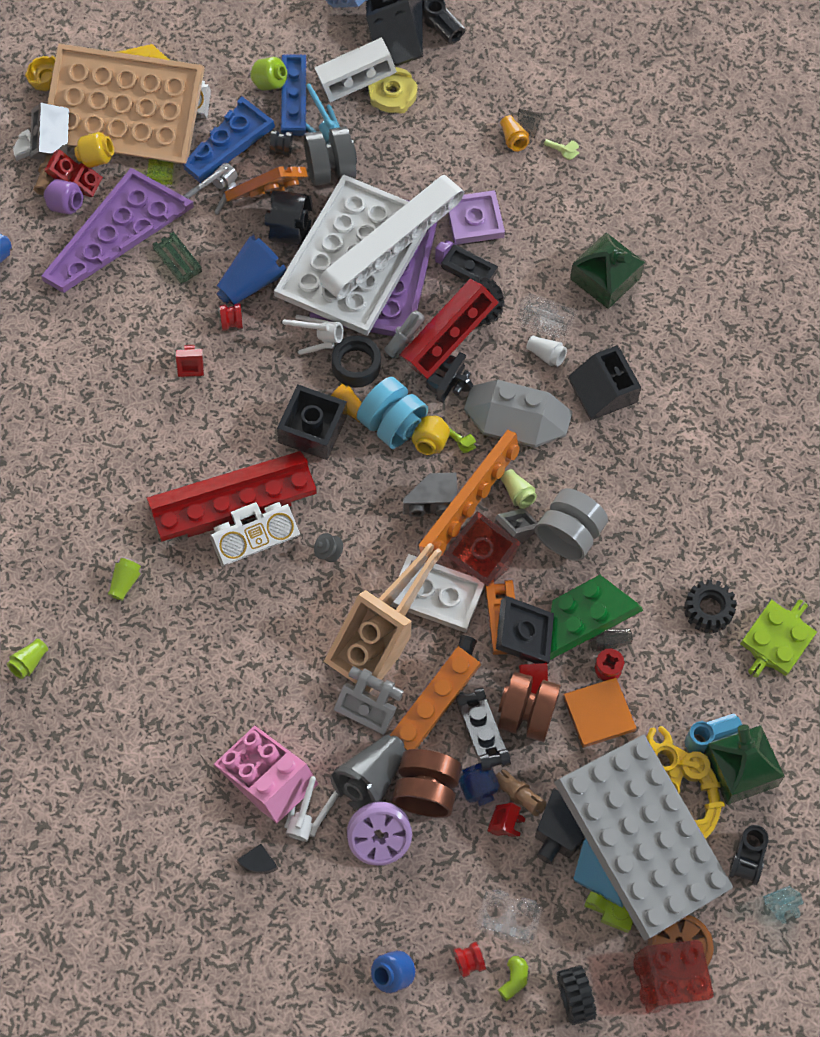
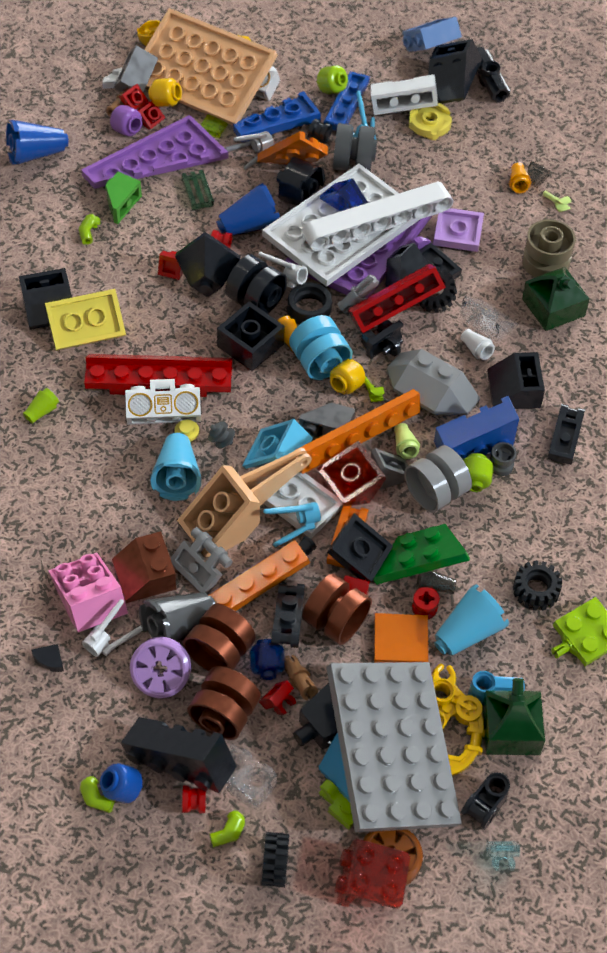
camera: 20 degrees right, 10 degrees down
(75, 345) = (87, 224): none -> lime arm
(75, 449) = (41, 289): none -> black slope
(98, 293) = (122, 195): none -> bright green slope
(128, 461) = (85, 319): none -> light yellow plate
(233, 353) = (206, 263): none -> black slope
(289, 358) = (257, 283): none -> black wheel
(289, 554) = (188, 428): none -> light yellow plate
(299, 603) = (176, 469): none -> medium azure cone
(314, 727) = (144, 568): none -> copper slope
(347, 223) = (344, 195): none -> clear blue slope
(366, 993) = (92, 795): none -> lime arm
(391, 540) = (276, 442): none -> medium azure slope
(438, 284) = (403, 263): none -> black slope
(440, 922) = (180, 753): none -> black wedge
(455, 611) = (305, 513): none -> medium azure plant
(460, 850) = (224, 702): none -> copper wheel
(579, 214) = (548, 247): none -> dark tan wheel
(591, 457) = (480, 431): none -> blue wedge
(607, 497) = (480, 471): none -> lime head
(623, 470) = (503, 458): none -> dark grey wheel
(663, 673) = (470, 622): none -> medium azure cone
(675, 425) = (566, 434): none -> black plate

